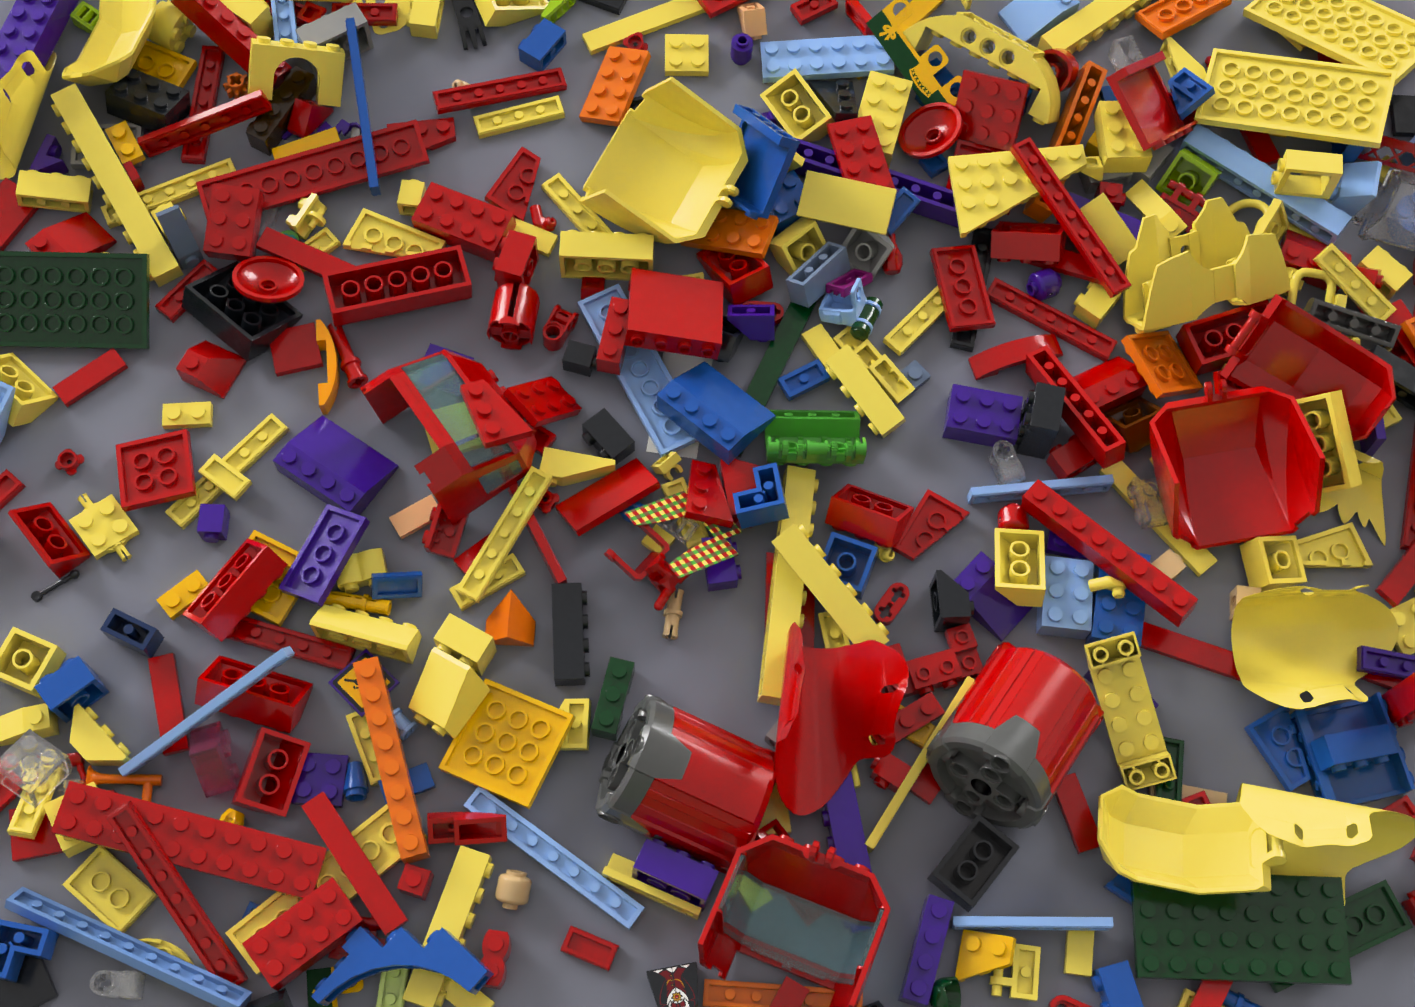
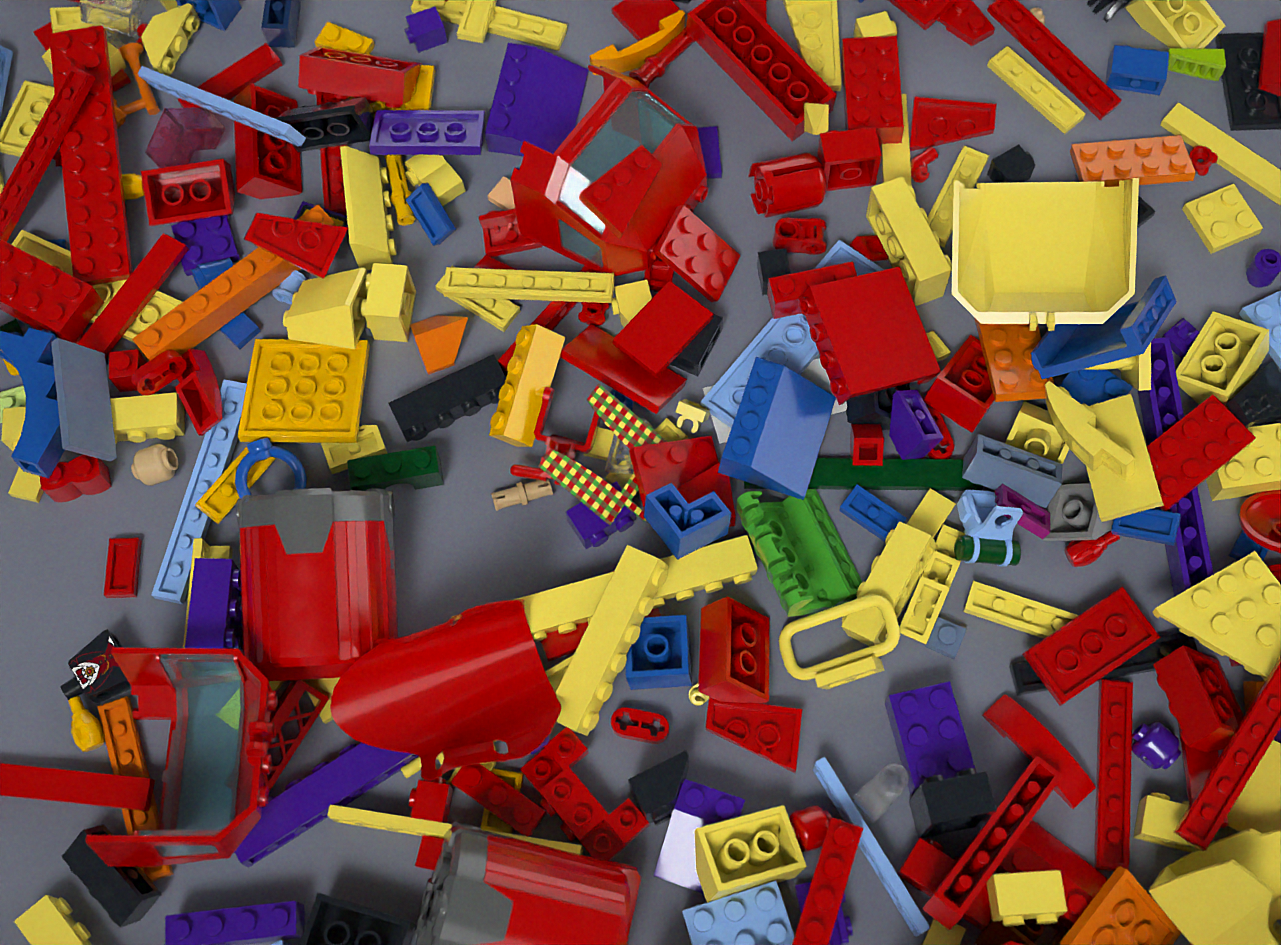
camera: 75 degrees right, 0 degrees up
(270, 627) = (331, 123): none -> black slope
(386, 687) = (297, 241): none -> red wing
(438, 851) = (158, 372): none -> red beam
(440, 917) = (83, 400): none -> sand blue tile
(477, 267) = (816, 118): none -> light yellow slope
(548, 794) = (262, 450): none -> blue piece
(561, 827) = (223, 494): none -> yellow tile
(578, 162) = (1012, 166): none -> black brick
(592, 569) = (527, 376): none -> yellow brick
(594, 452) = (662, 329): none -> red tile
(752, 357) = (866, 444): none -> red brick
(813, 216) = (1077, 429): none -> light yellow slope
(912, 444) = (849, 666): none -> light yellow bar
(1122, 400) = (1026, 897): none -> light yellow brick

